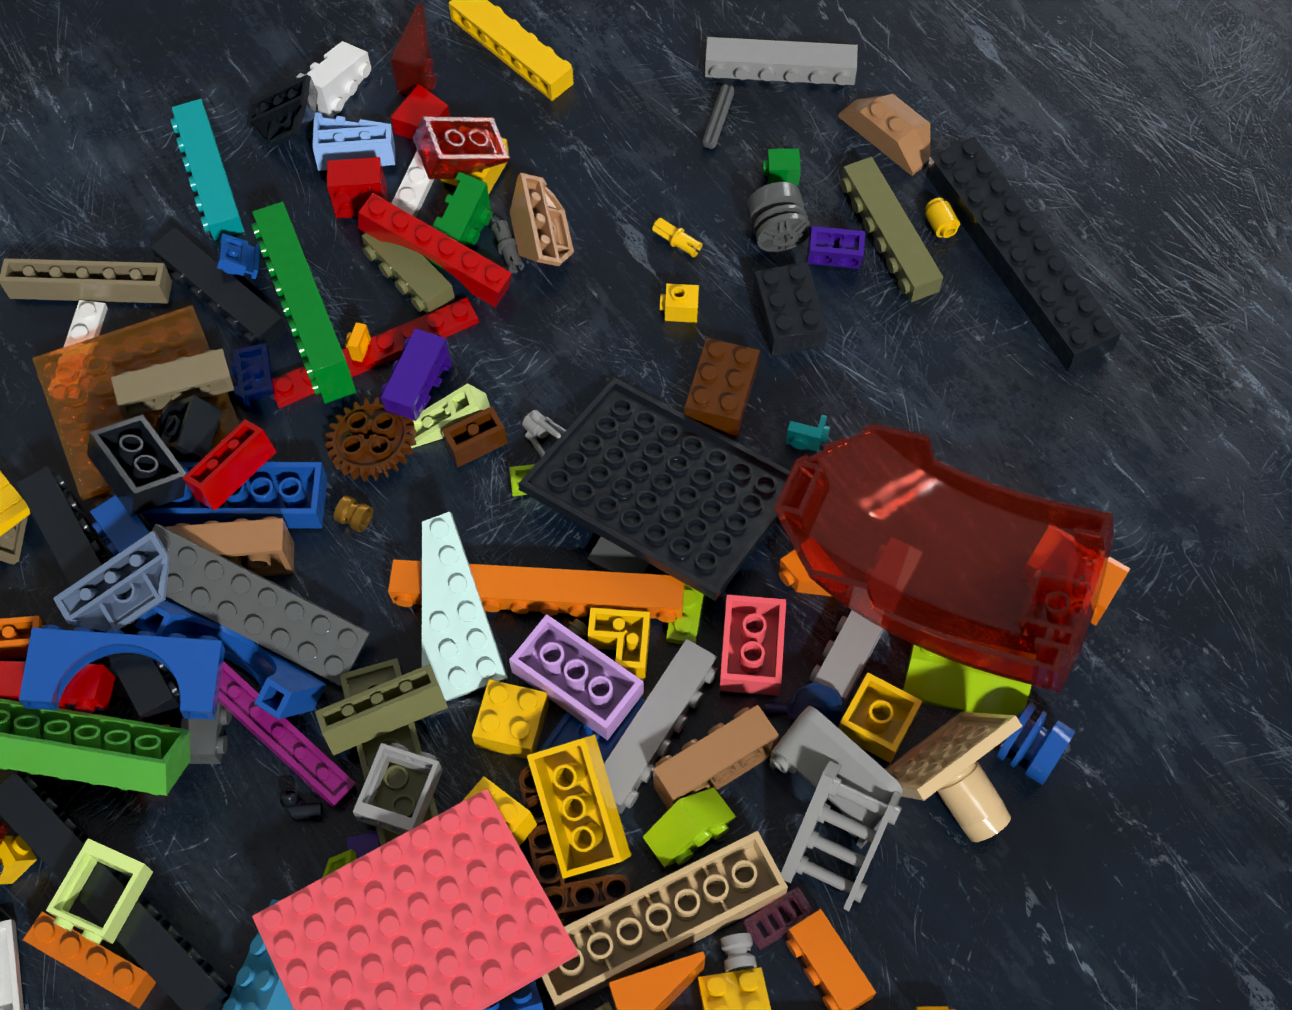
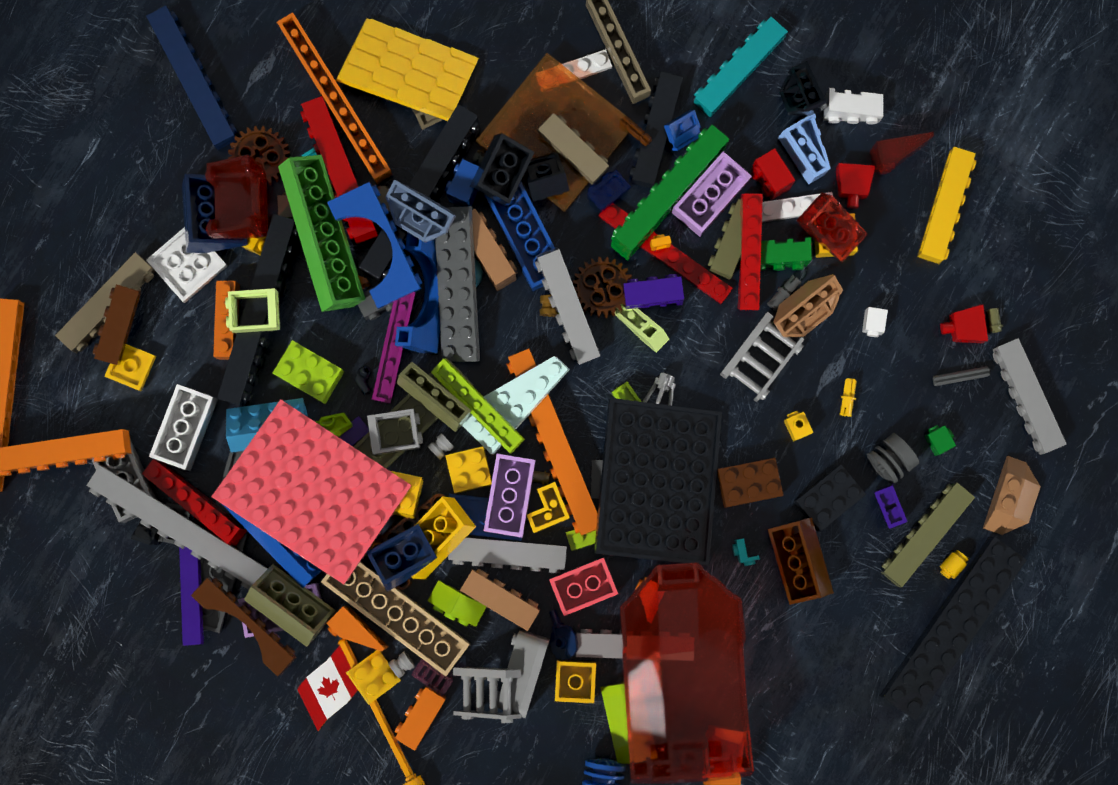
camera: 65 degrees right, 20 degrees up
(201, 304) = (635, 131): none -> reddish brown axle
(229, 464) = (531, 222): red brick -> none
(240, 876) = (308, 372): none -> lime brick
(337, 263) = (711, 194): none -> lavender brick
(366, 481) = (568, 306): none -> light grey brick
(439, 652) = (479, 406): none -> lime plate
(456, 743) = (440, 446): none -> light grey wheel
(474, 436) = (634, 350): reddish brown brick -> none
(557, 322) = (755, 340): none -> light grey fence
(582, 860) = (401, 557): none -> dark blue slope
(601, 169) = (874, 321): none -> white brick
(663, 82) = (967, 326): none -> red torso
(672, 57) = (994, 320): none -> olive pin
(853, 369) = (800, 561): none -> reddish brown brick
(950, 766) = (560, 736): tan piece -> none

